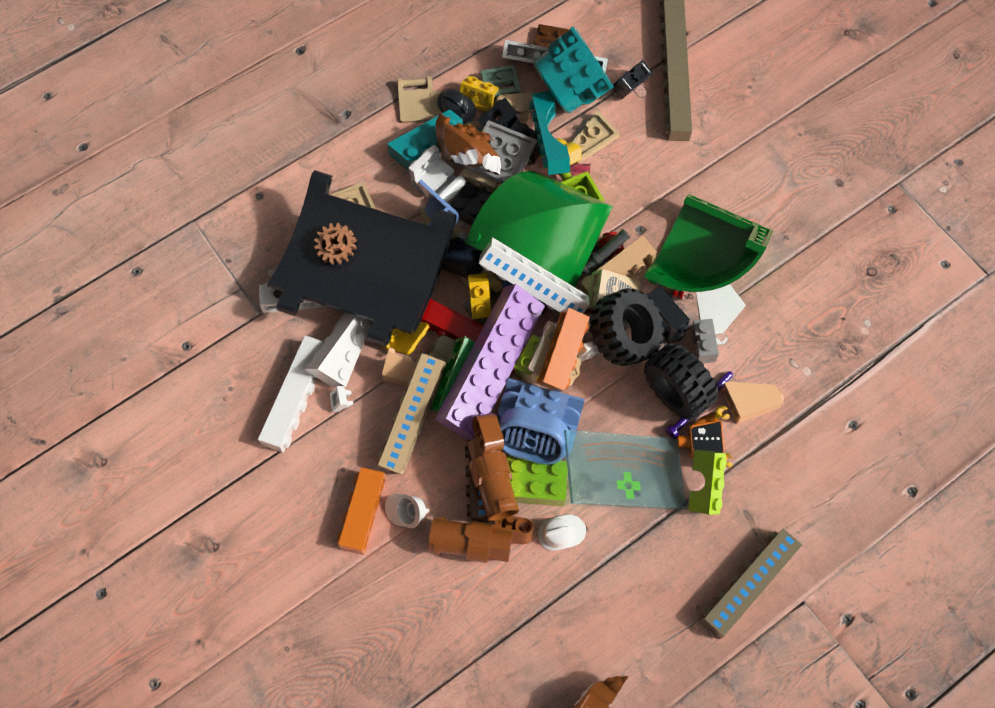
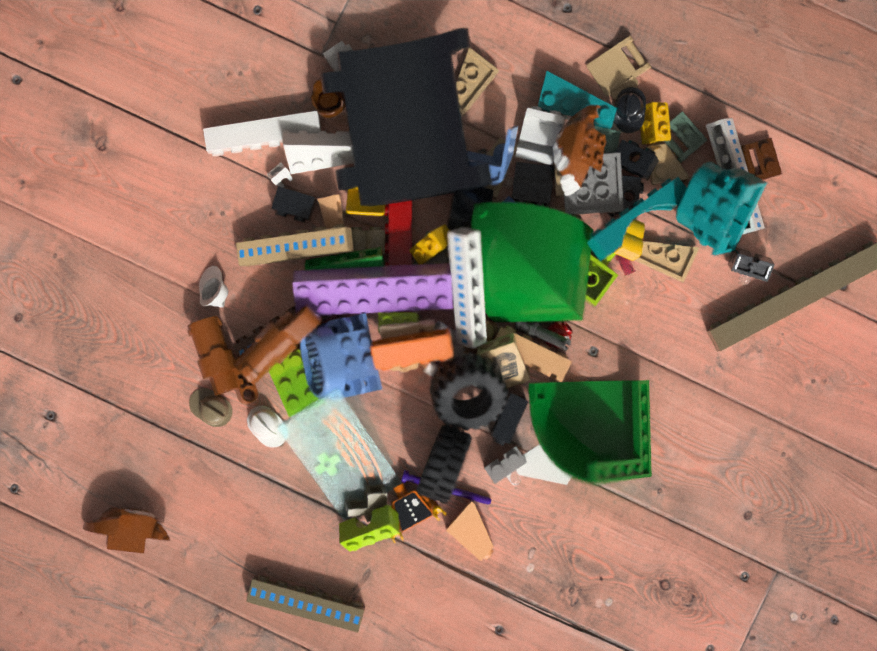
camera: 65 degrees right, 20 degrees up
(302, 324) = (327, 104): none -> reddish brown piece
(331, 236) = (407, 81): nougat gear -> none
(362, 510) = (193, 251): orange brick -> none
(373, 399) = (293, 204): none -> black brick
(516, 576) = (210, 408): none -> dark tan piece
(680, 467) = (374, 498): none -> dark tan brick

